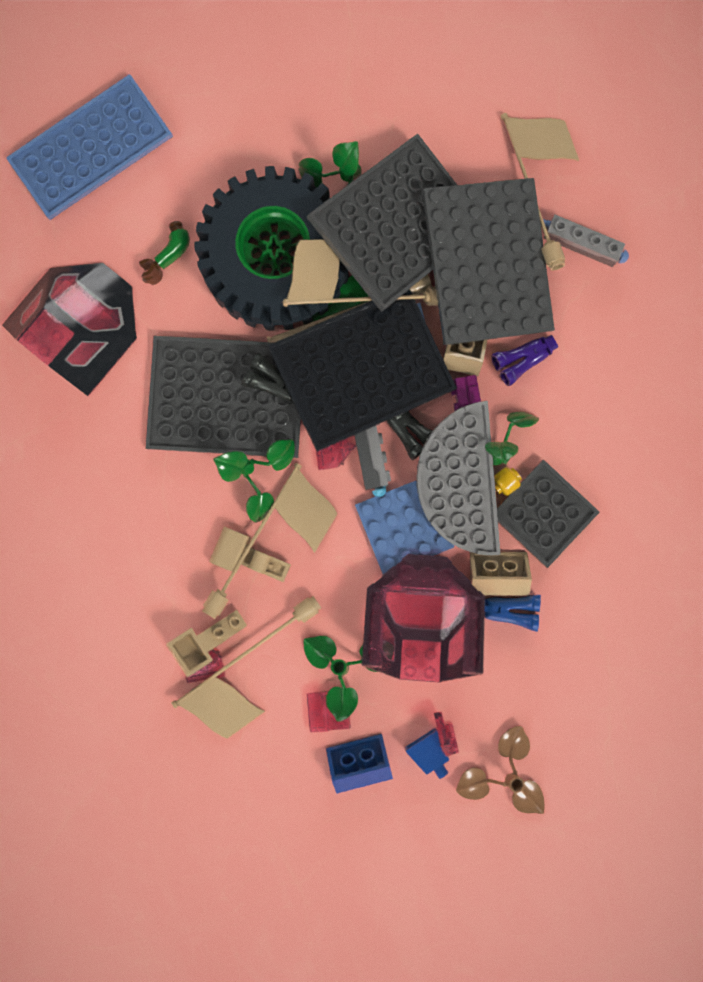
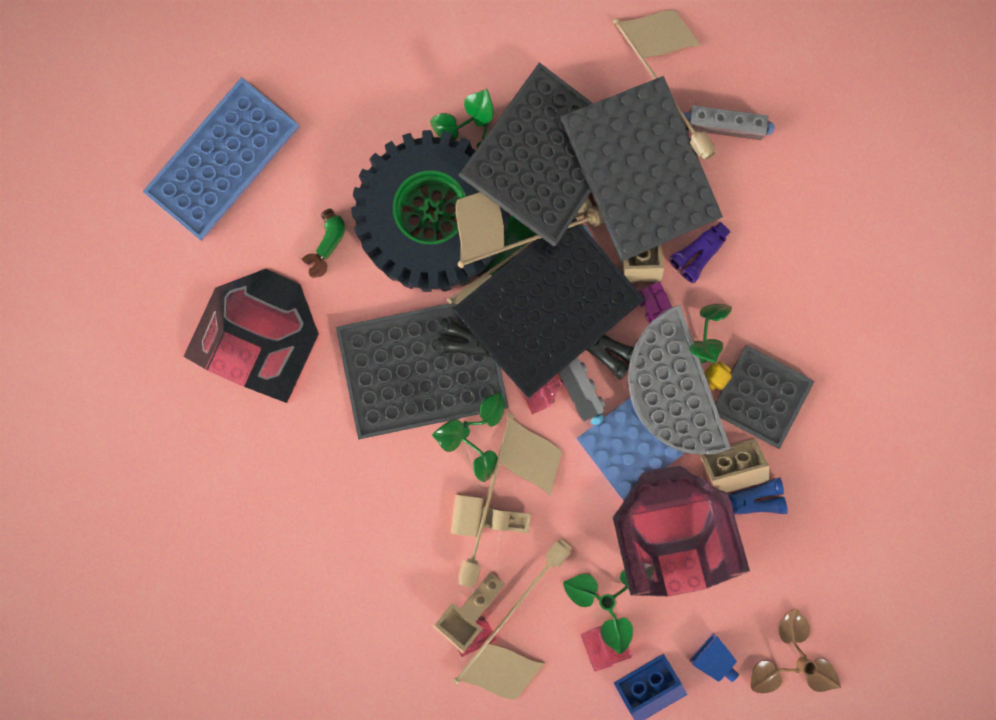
camera: 20 degrees left, 0 degrees up
(446, 735) = (727, 638): clear pink slope -> none

